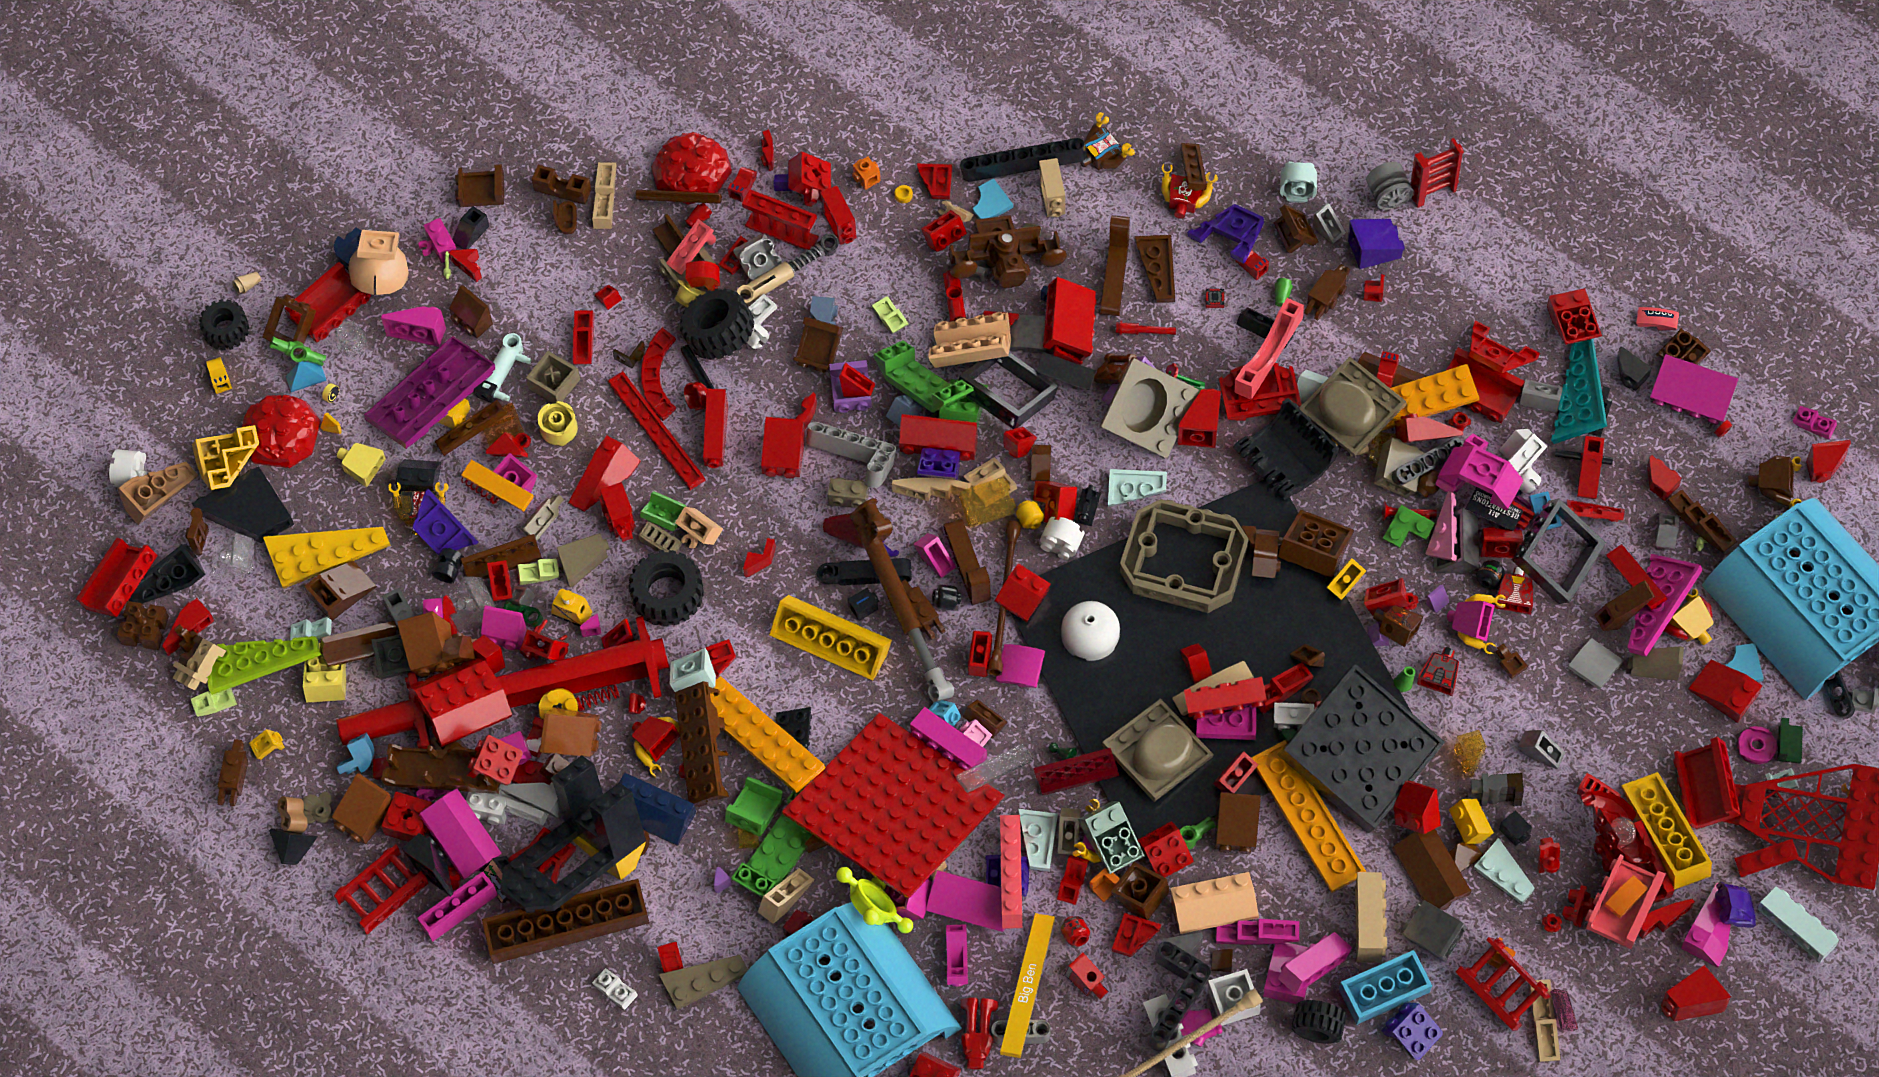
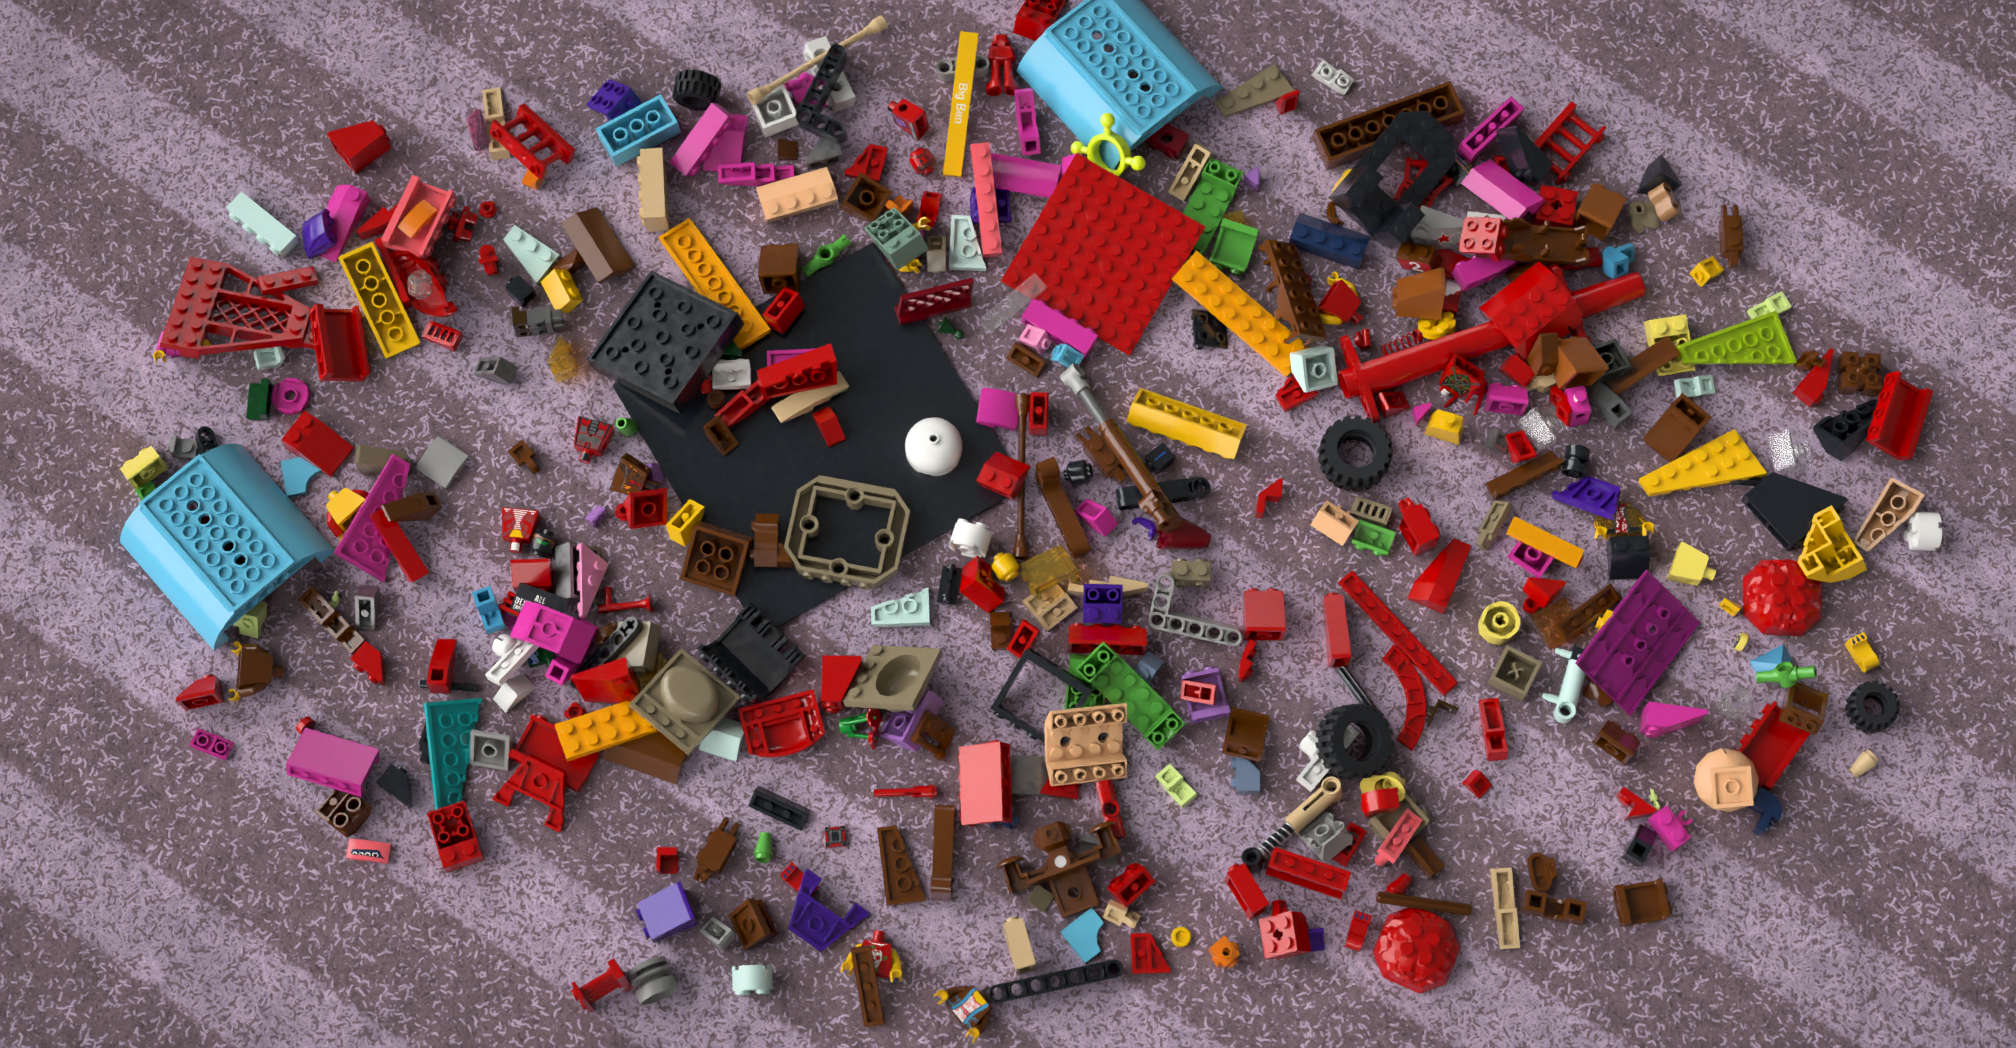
camera: 170 degrees right, 10 degrees up
(197, 532) = (1832, 469): reddish brown plate -> none
(197, 663) = (1794, 336): tan hips -> none
(526, 611) = (1492, 420): dark green connector -> none
(541, 571) = (1485, 469): yellowish green slope -> none
(582, 557) = (1446, 483): dark tan slope -> none
(695, 395) = (1361, 670): red hair -> none
(767, 150) = (1335, 968): red slope -> none
(1066, 371) = (984, 727): black slope -> none
(1157, 750) = (860, 330): dark tan piece -> none
(1166, 850) = (847, 240): red bracket -> none
(1256, 370) = (774, 760): coral arch -> none
(1387, 368) = (650, 748): red leg -> none
(1405, 522) = (626, 591): bright green plate -> none
(1417, 808) = (612, 288): red slope -> none
(1434, 930) = (593, 181): flat silver slope -> none
(1474, 618) = (559, 489): dark pink torso -> none
(1594, 546) = (459, 550): black window -> none
(1596, 511) = (441, 619): red wing -> none

